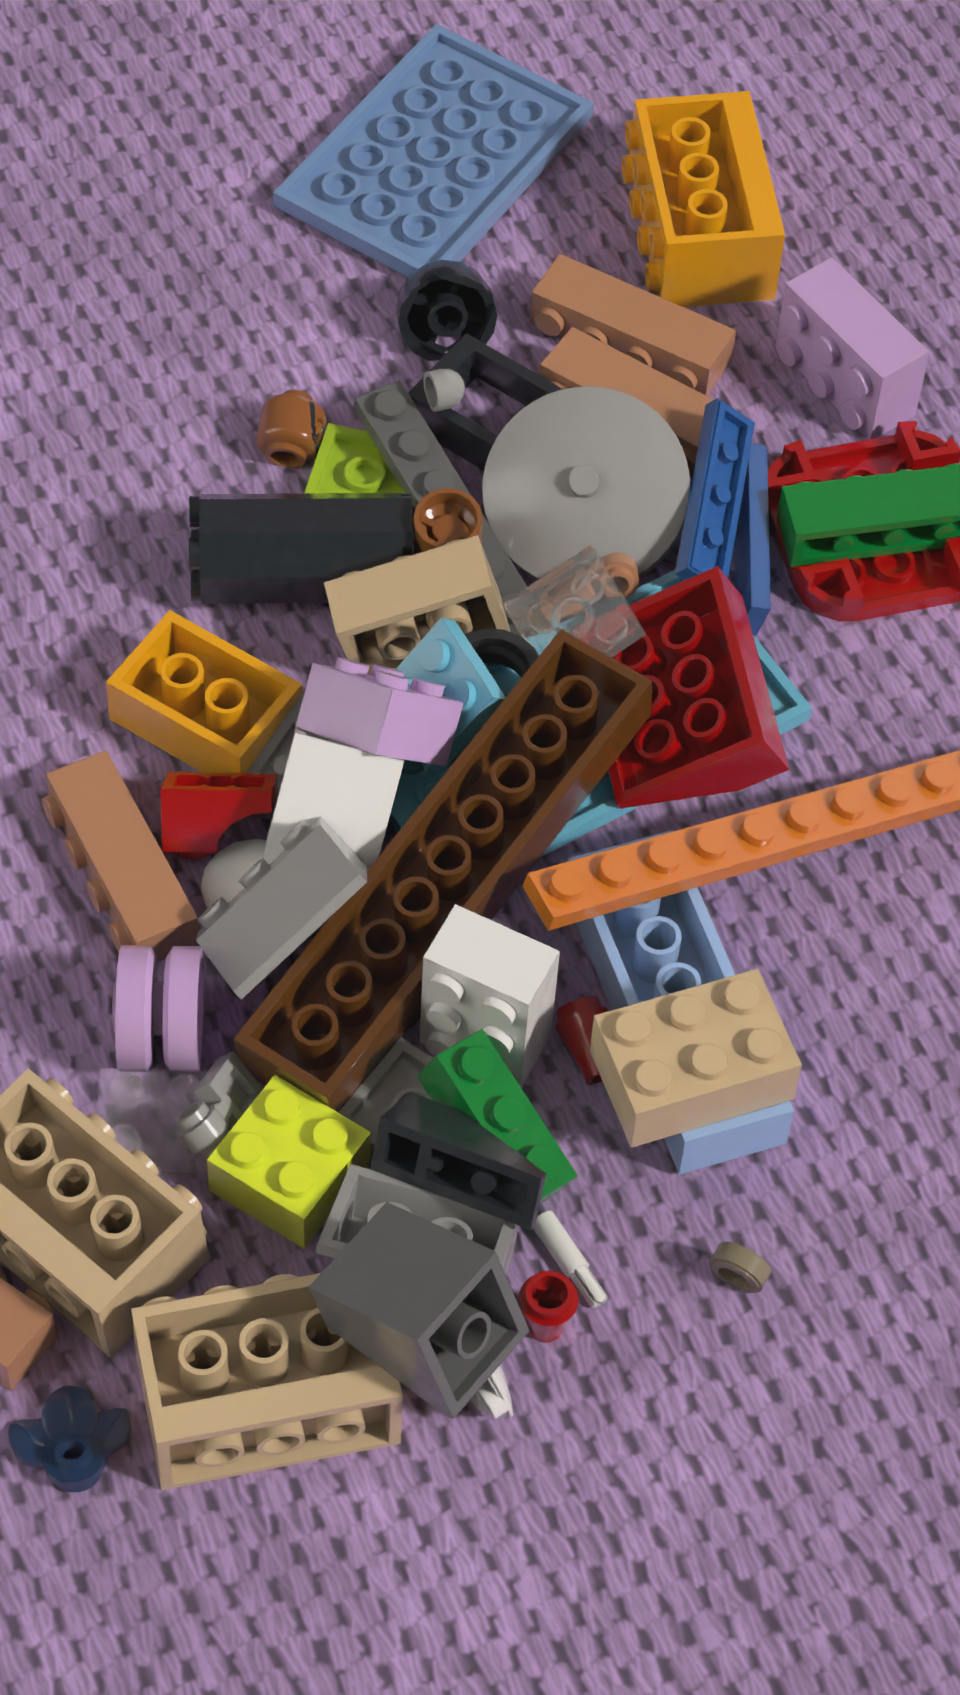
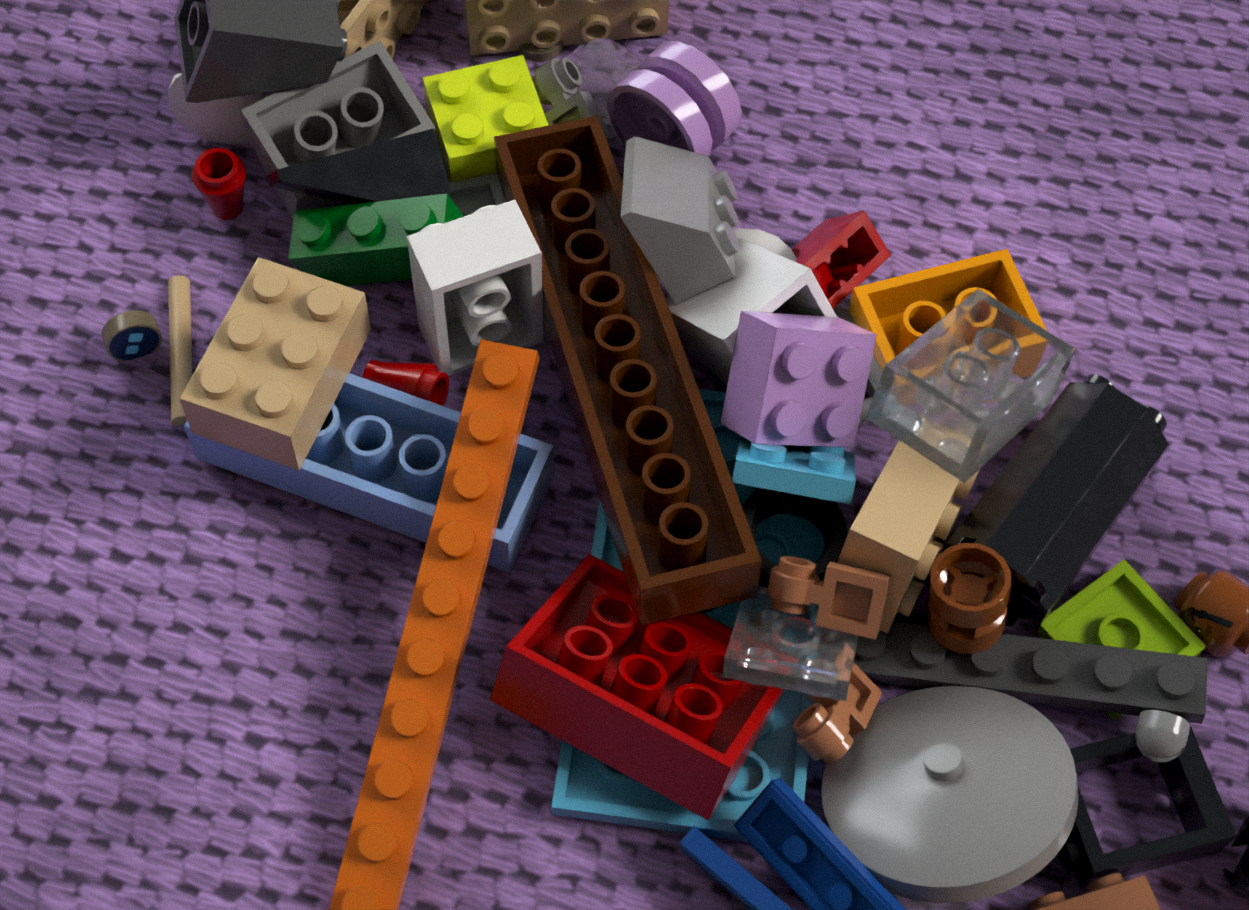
camera: 130 degrees right, 5 degrees up
(119, 856) = (815, 184): nougat brick -> none
(297, 588) = (969, 384): none -> clear brick
(527, 589) = (847, 598): none -> nougat plate
(569, 1258) = (249, 250): white pin -> none
(710, 1236) = (179, 343): none -> tan bar

